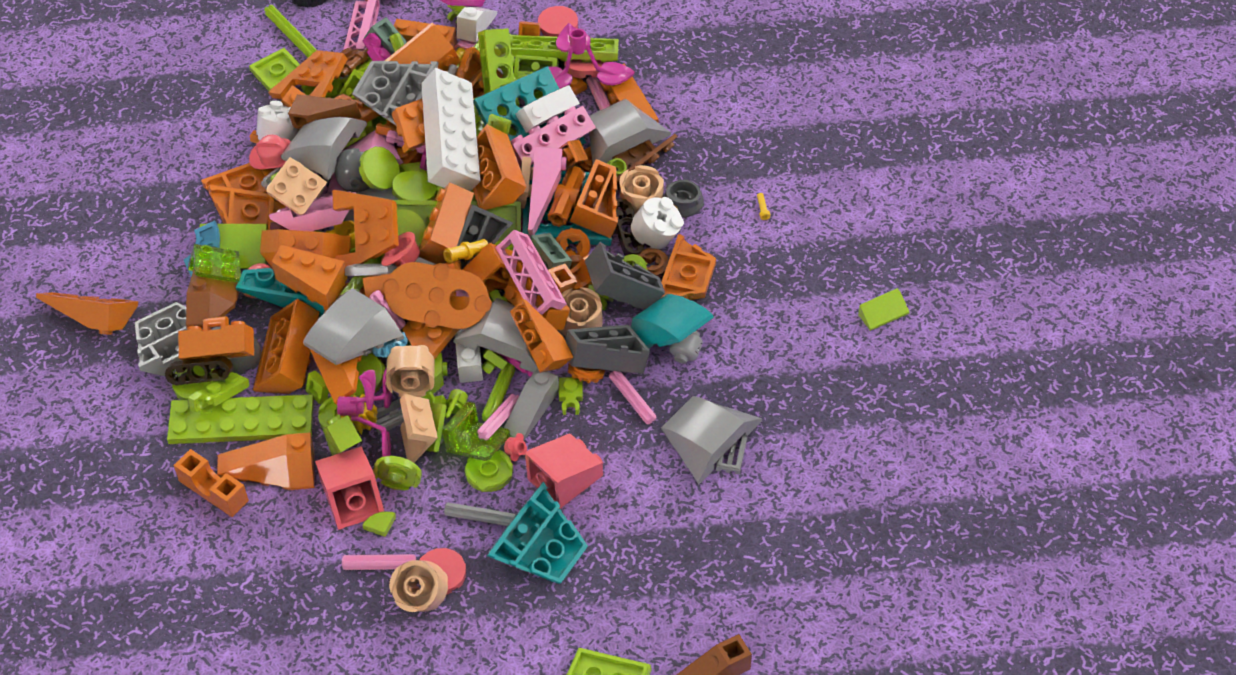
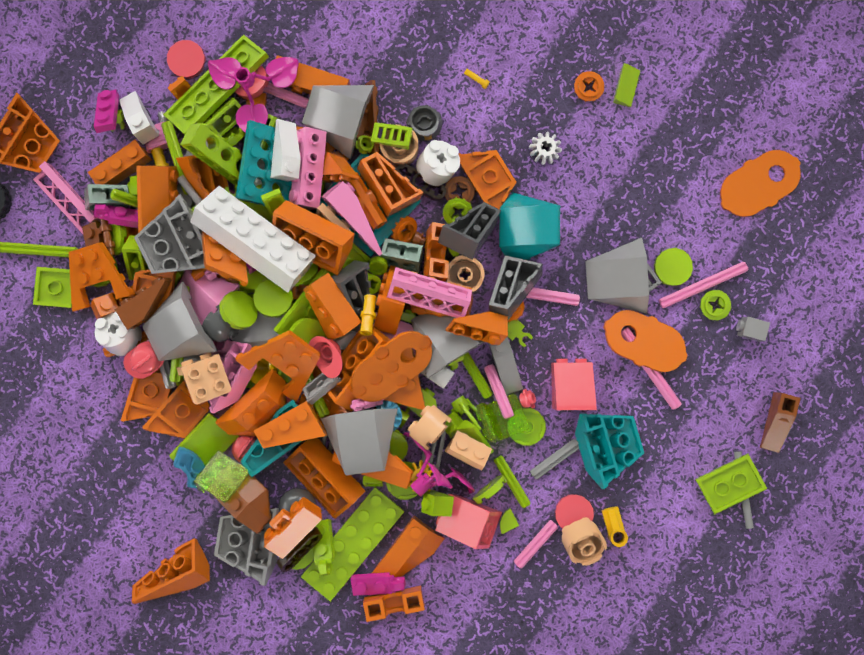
camera: 50 degrees left, 35 degrees up
(218, 458) = (376, 584): none -> dark pink hinge
(422, 497) = (512, 481): none -> lime axle
(461, 610) = (614, 524): none -> yellow piece
(644, 181) = (400, 129): none -> lime slope
(648, 525) = (656, 377): none -> bright pink axle
(673, 508) = (654, 345): none -> orange piece
(758, 291) = (547, 142): none -> white gear
(764, 469) = (673, 266): none -> lime tile
(771, 522) = (723, 302): none -> lime gear
(775, 506) = (703, 285): none -> bright pink axle
(778, 576) = (752, 329): none -> light grey brick
(857, 280) = (589, 77): none -> orange gear
(913, 476) = (751, 188): none -> orange piece

